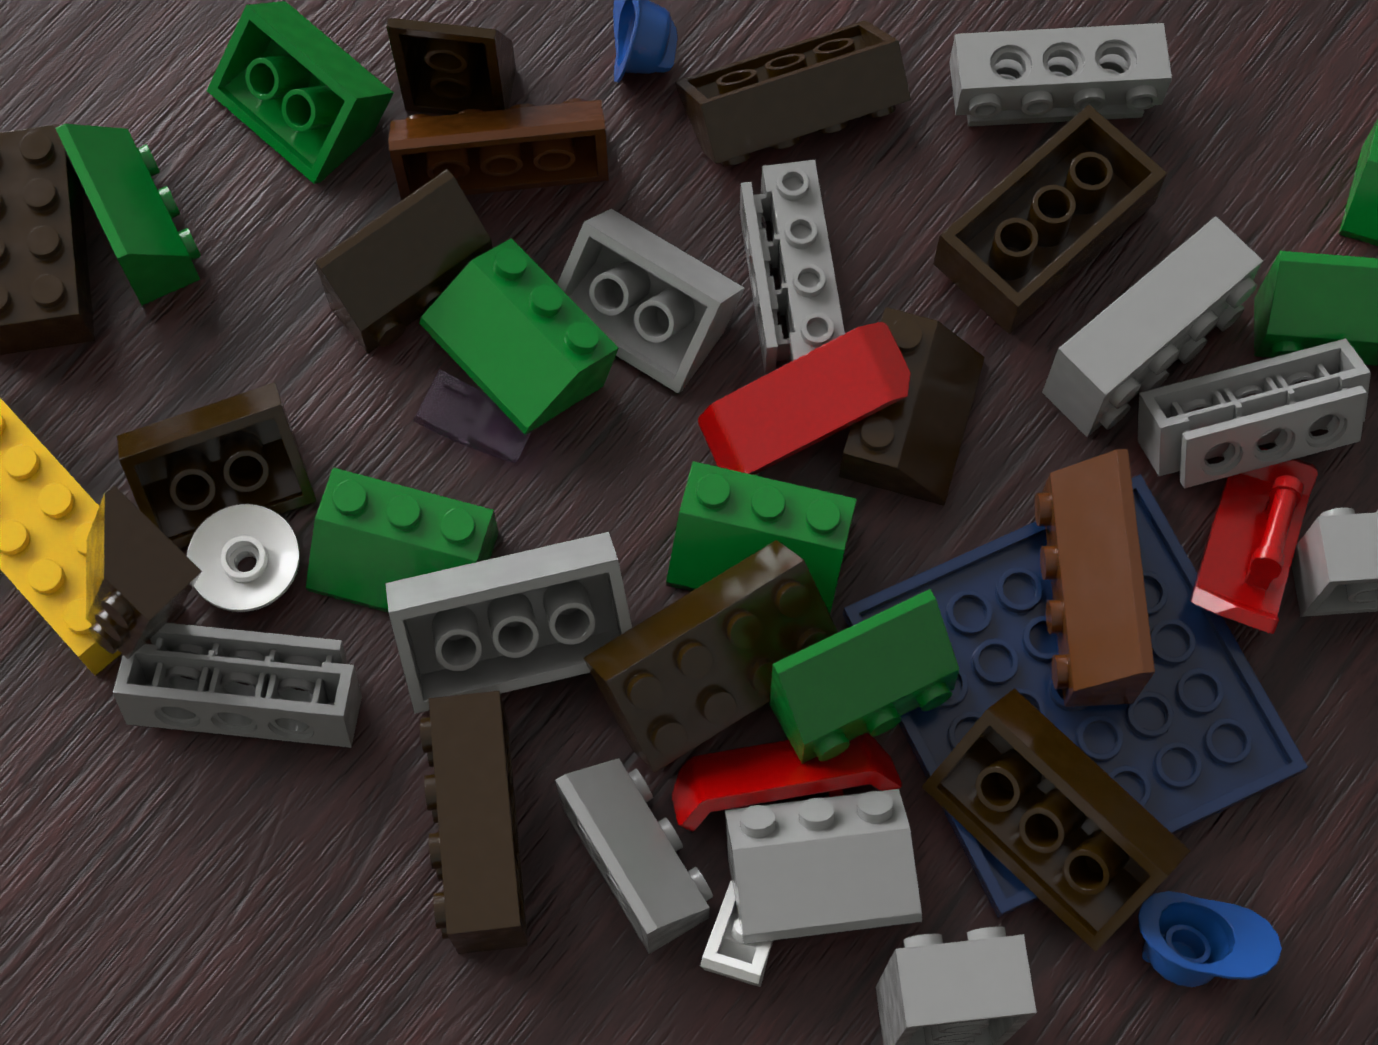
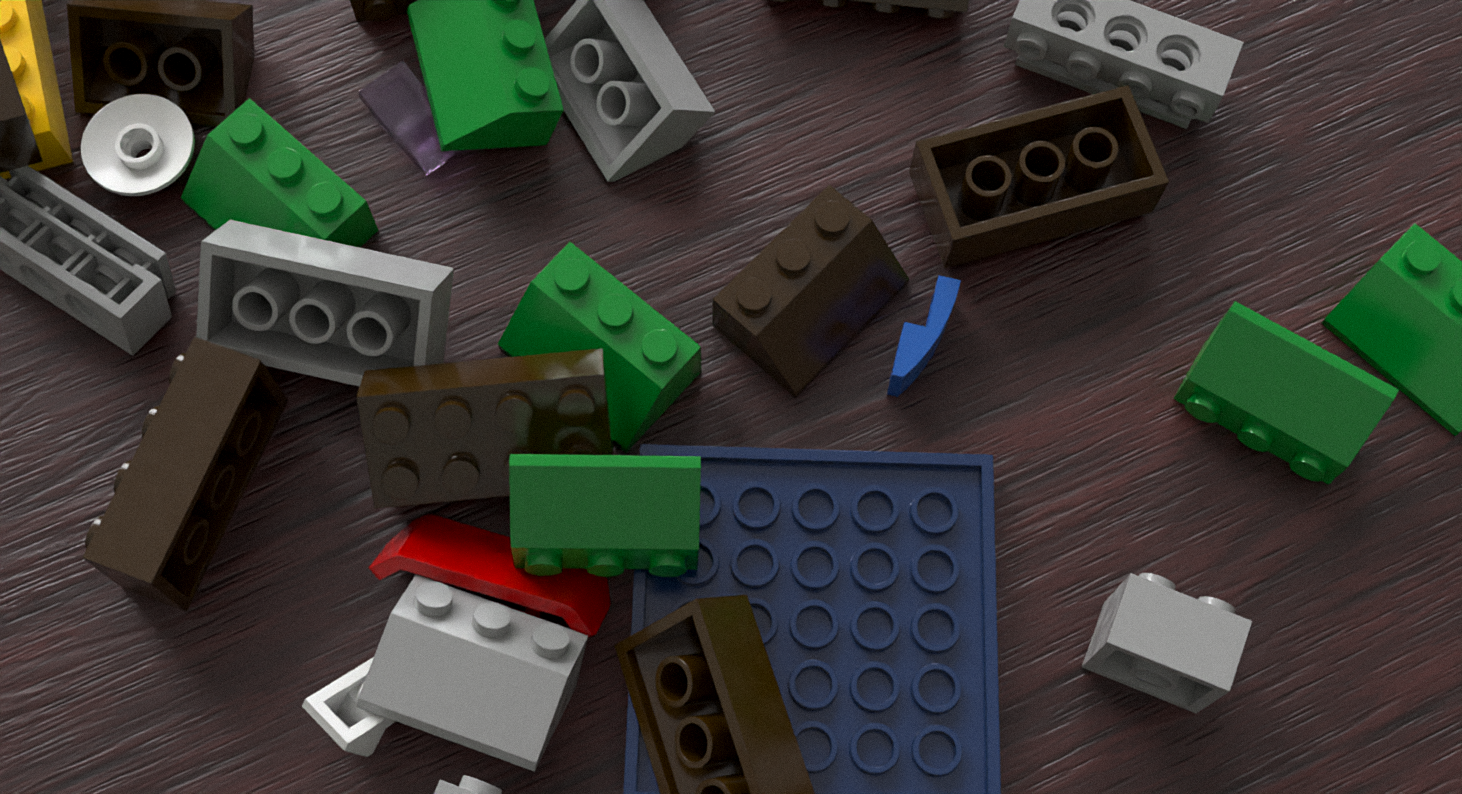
camera: 25 degrees right, 0 degrees up
(634, 851) = (312, 571): light grey slope -> none
(803, 259) = (773, 138): light grey brick -> none
(806, 400) = (710, 235): red piece -> none
(1027, 409) = (920, 342): none -> blue slope
(1095, 582) = (878, 531): reddish brown slope -> none
(1152, 328) = (1078, 320): light grey brick -> none
(1237, 425) = (1112, 450): light grey brick -> none
(1254, 543) = (1070, 569): red piece -> none

